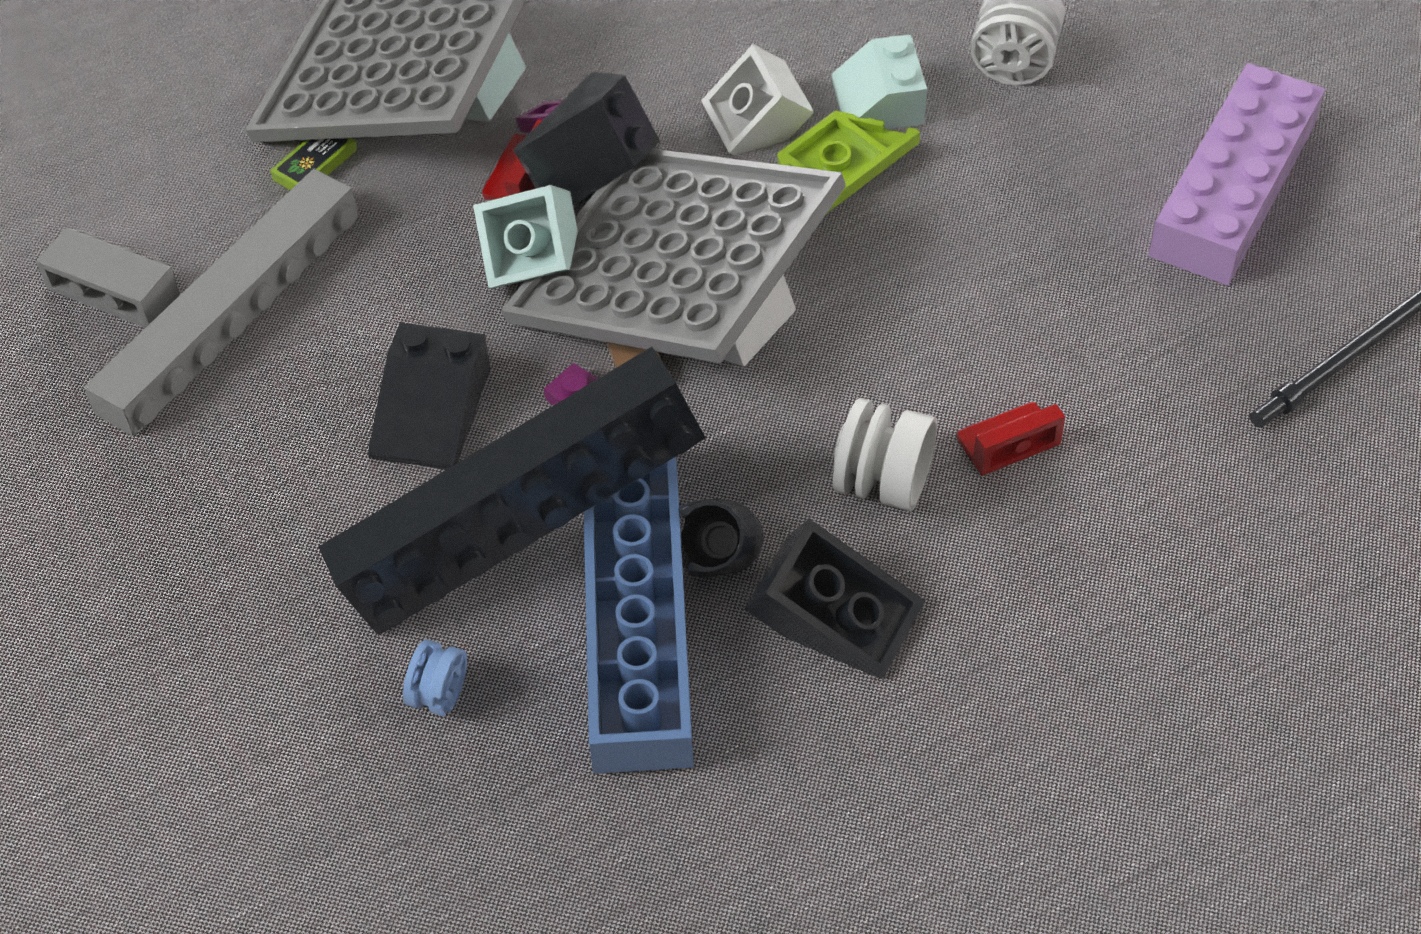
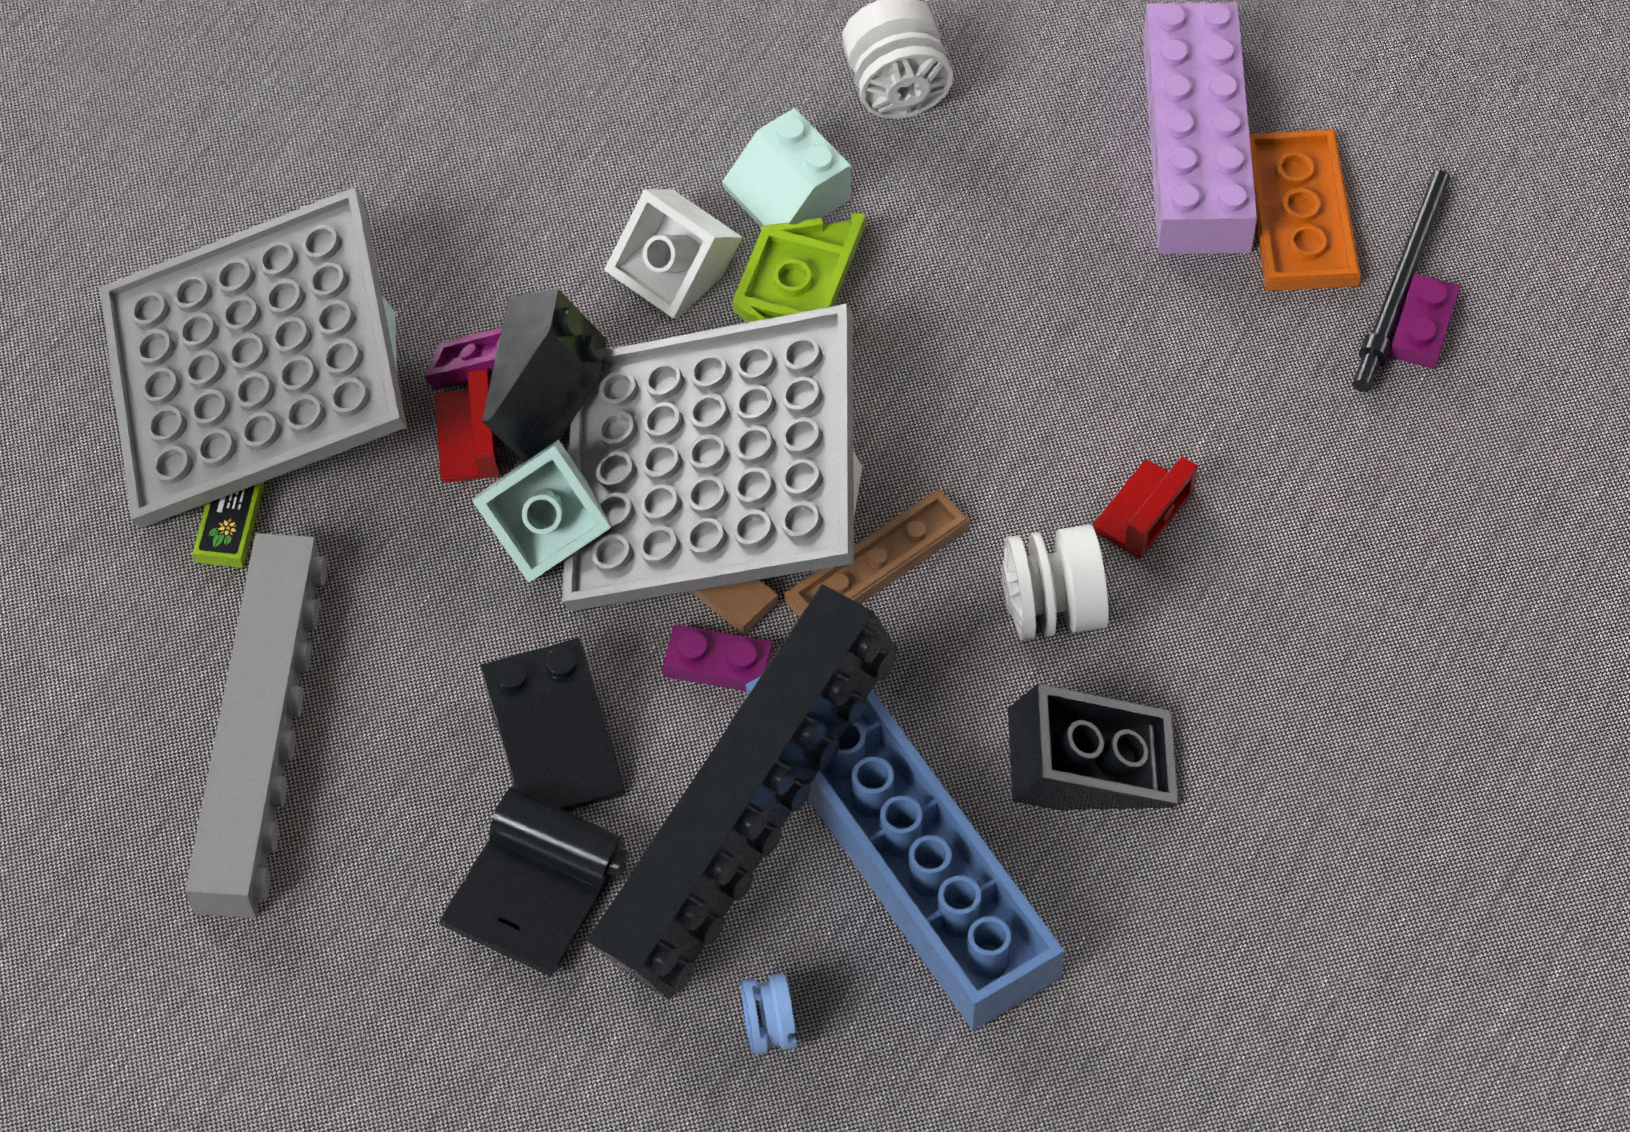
camera: 30 degrees left, 5 degrees up
(108, 277) = (104, 757): light grey brick -> none
(330, 493) = (536, 877): none -> black door
(720, 537) = (951, 740): black piece -> none
(768, 384) = (887, 552): none -> medium nougat tile
(1290, 269) = (1302, 211): none -> orange tile
(1346, 393) = (1424, 321): none -> magenta plate

